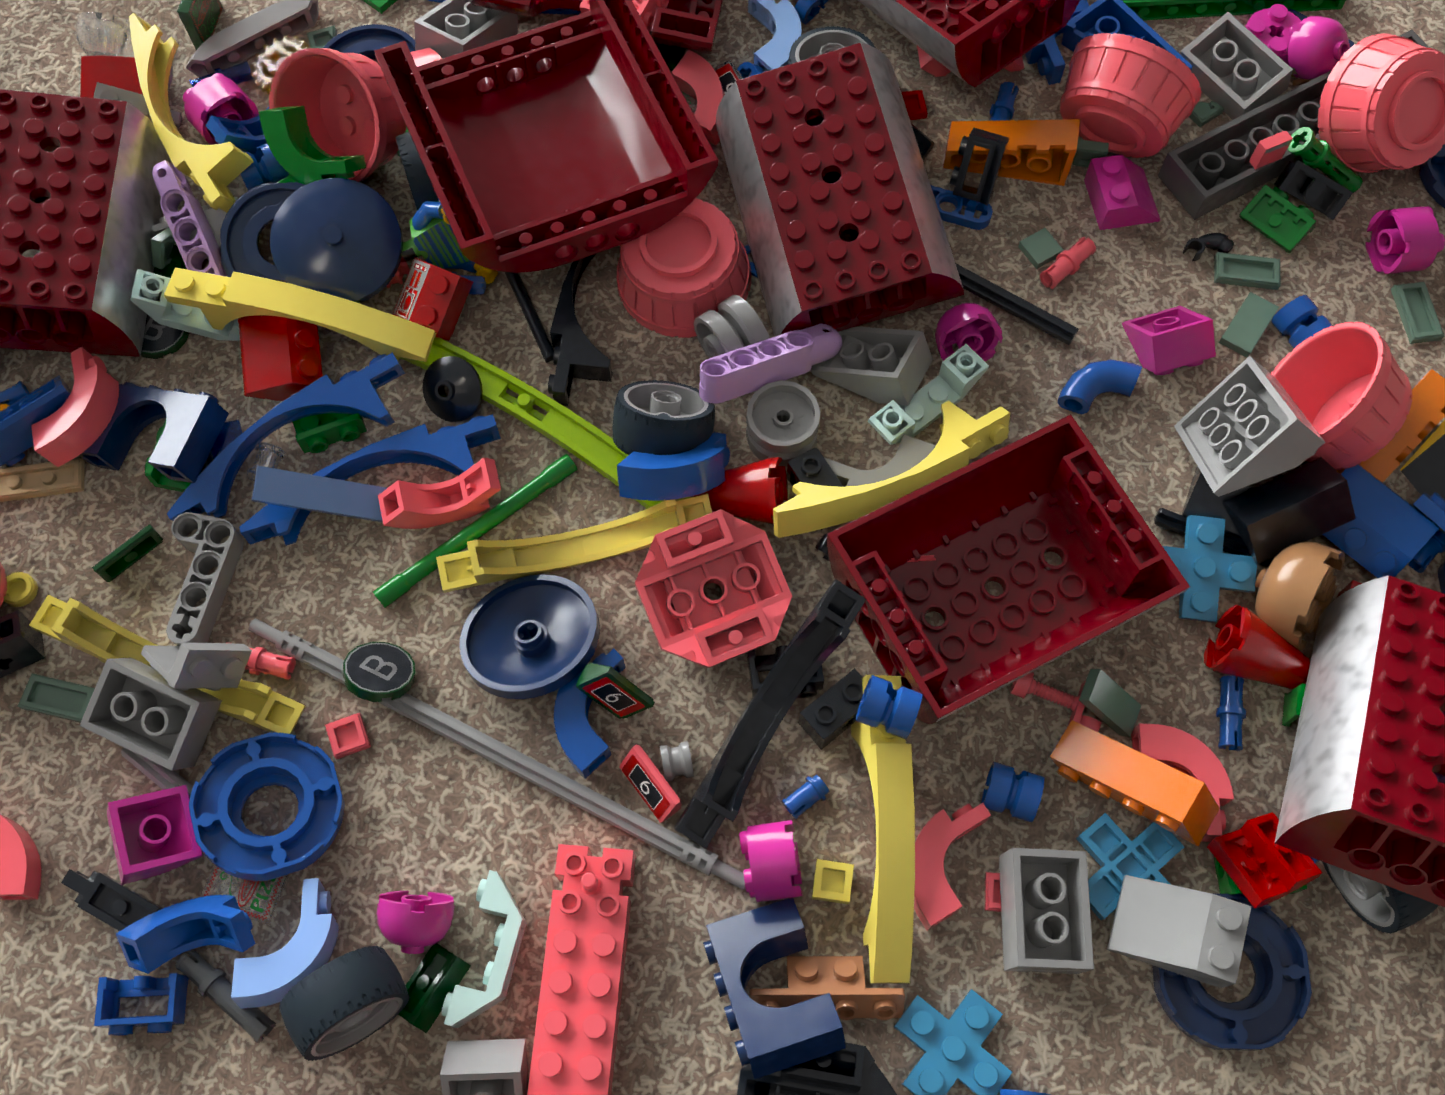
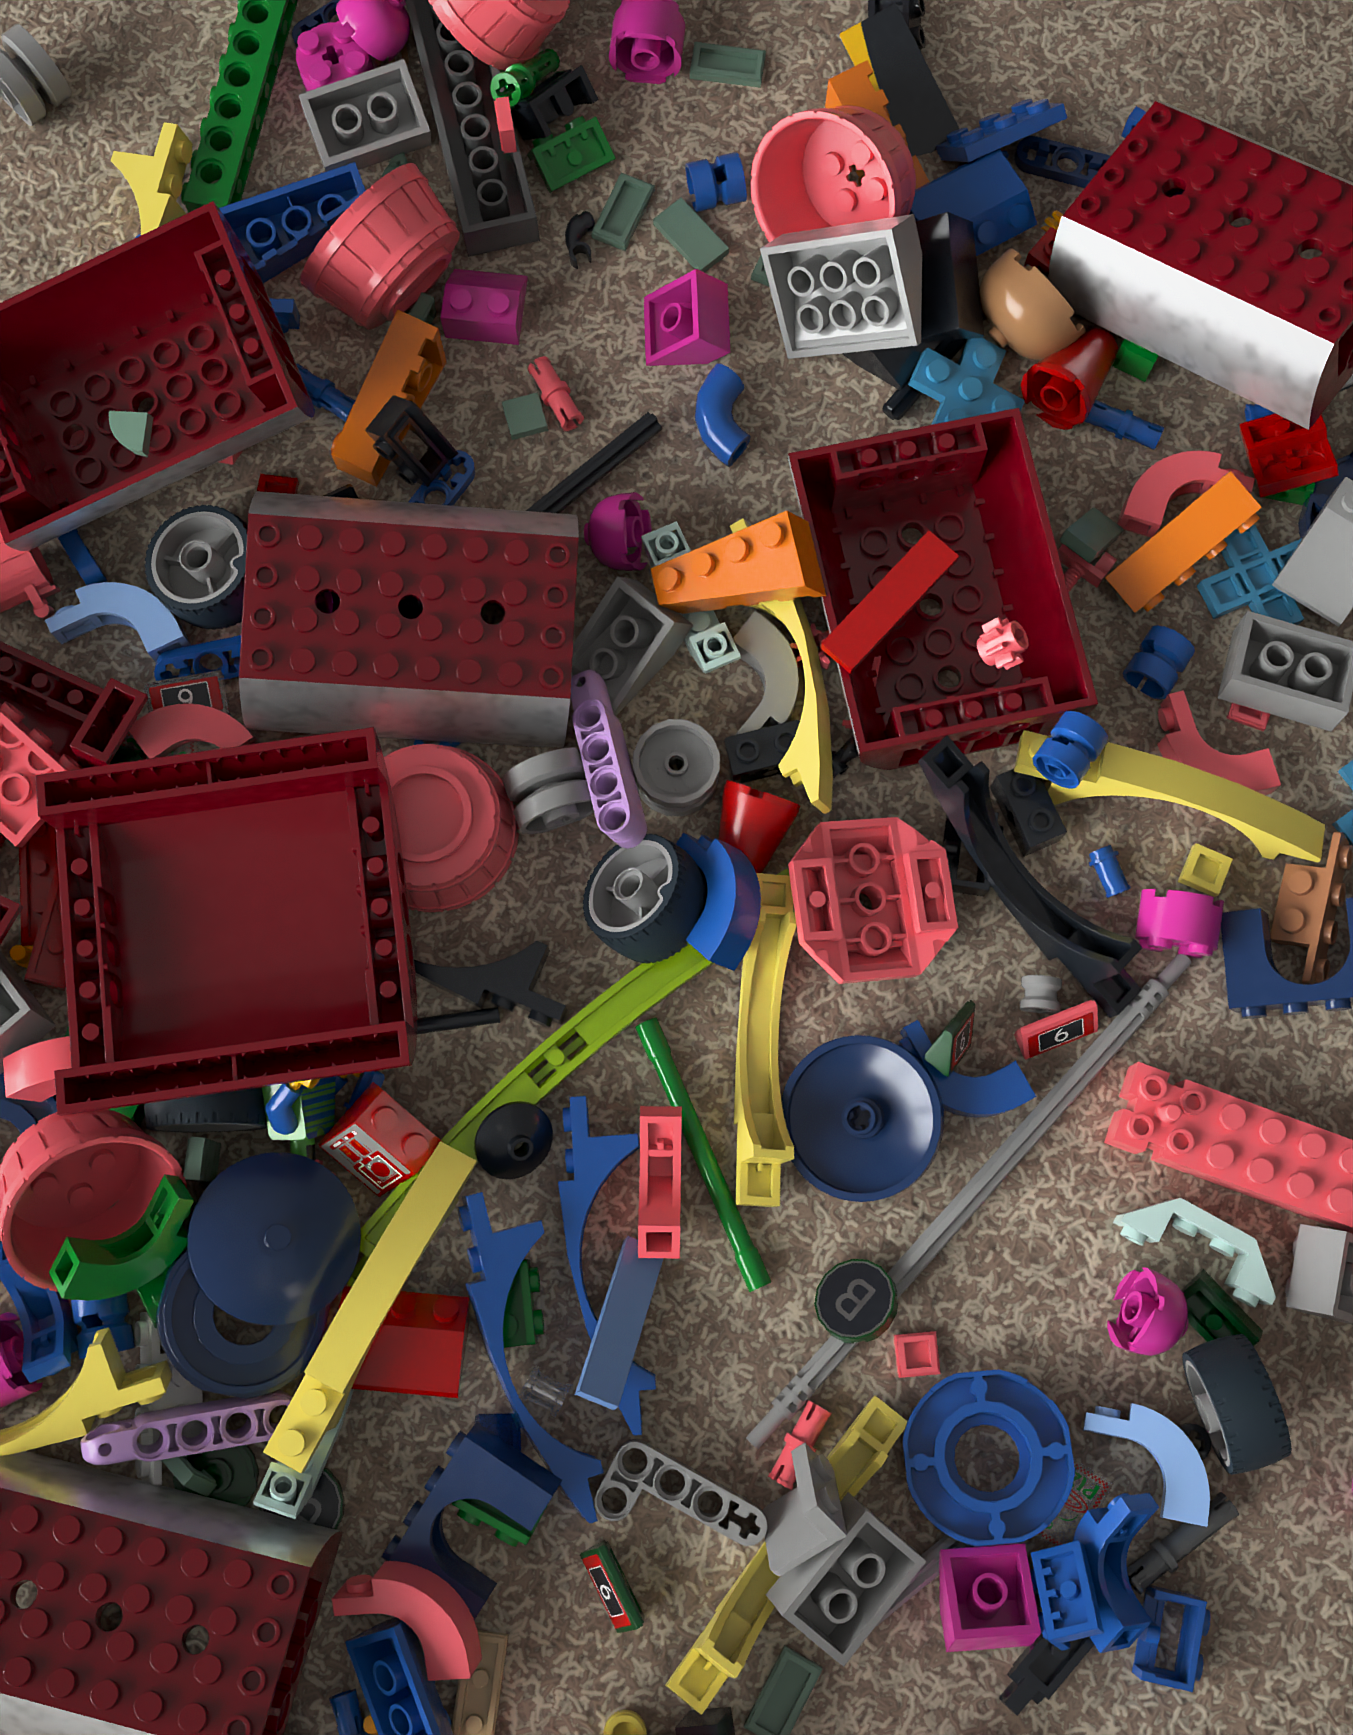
camera: 75 degrees left, 10 degrees up
(159, 891) = (1066, 1594): none -> blue bracket
(389, 185) = (202, 1160): none -> sand green tile
(959, 615) = (1002, 643): none -> coral gear
(961, 412) = (744, 568): none -> orange wedge
(968, 521) = (889, 602): none -> red tile

